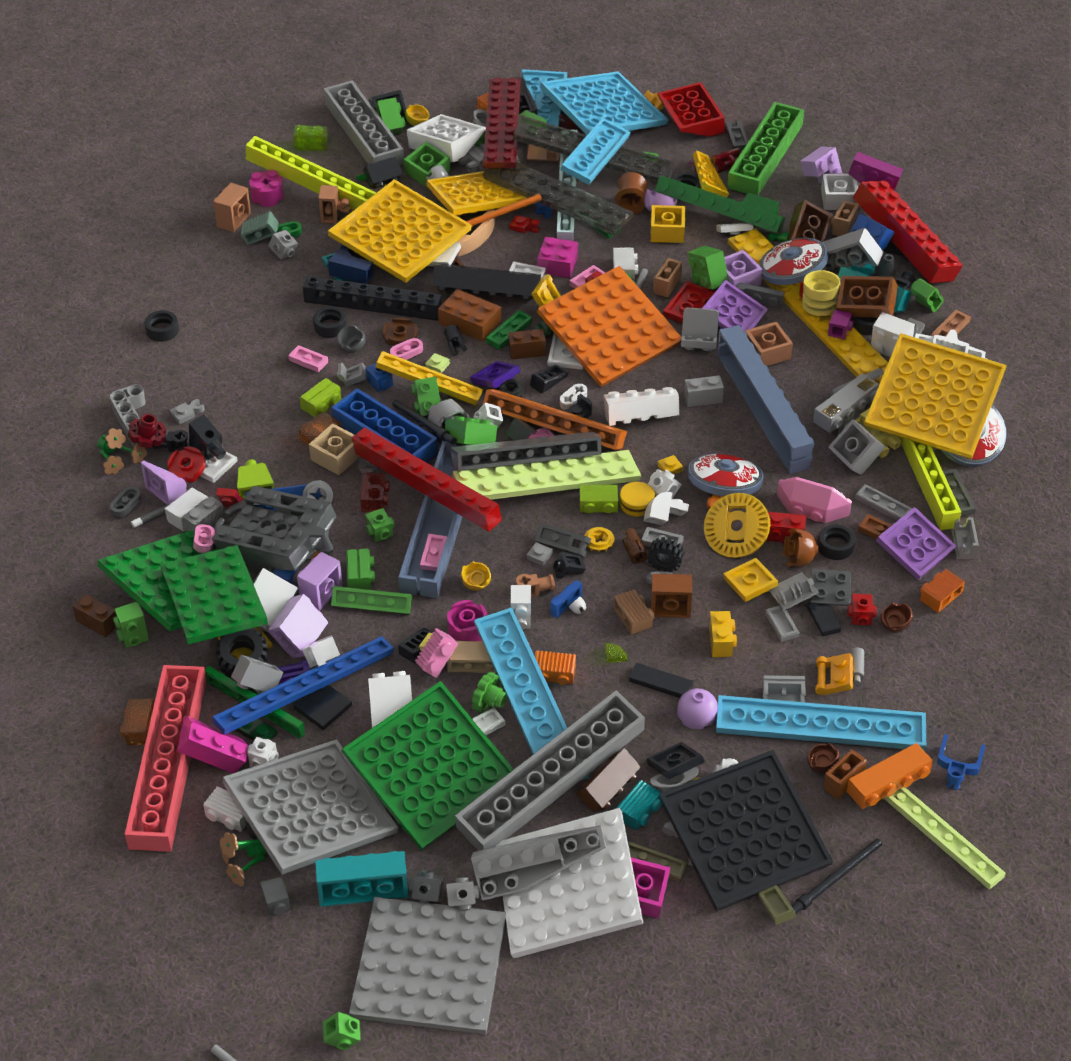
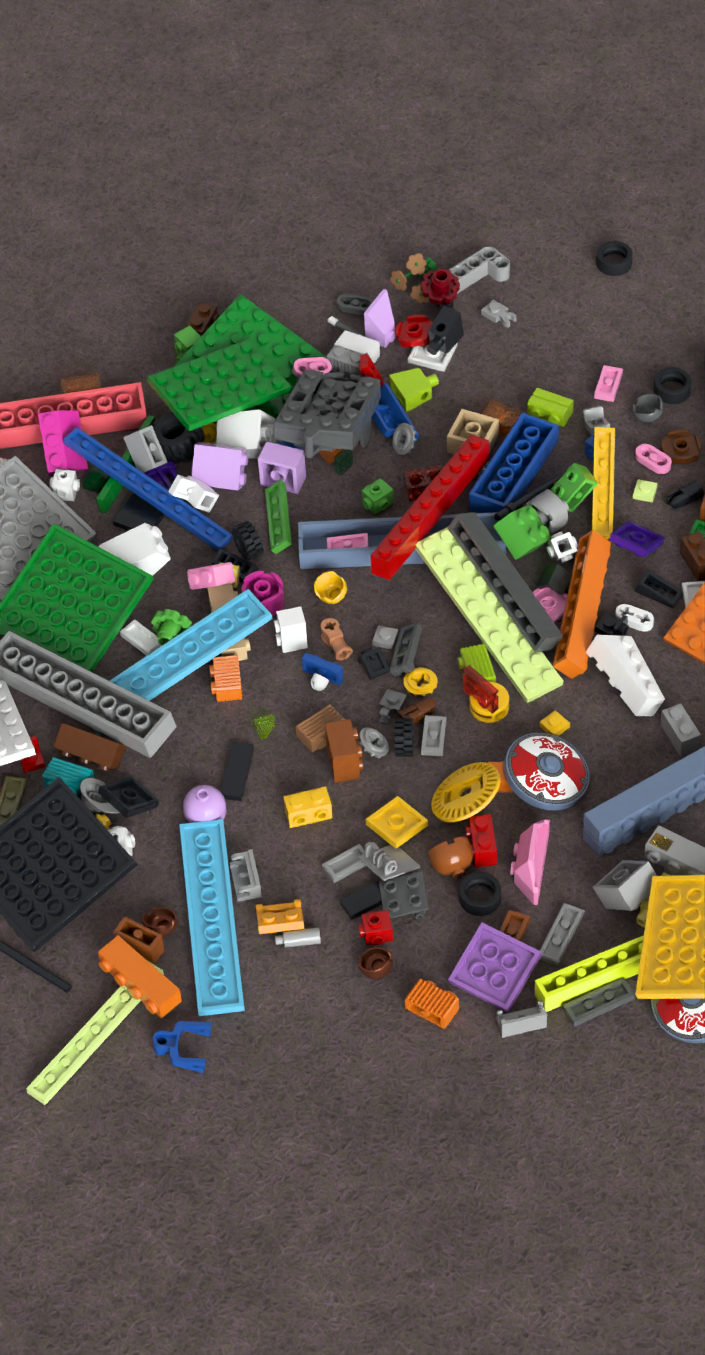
camera: 80 degrees right, 5 degrees up
(359, 569) = (315, 497): bright green brick -> none
(390, 619) = (247, 540): none -> black tyre
(512, 385) = (623, 554): pearl dark grey gear -> none
(617, 562) = (390, 704): none -> flat silver plate
(638, 489) = (480, 689): none -> clear red plate
(660, 507) = (472, 719): white brick -> none
(664, 482) = (513, 719): white brick -> none

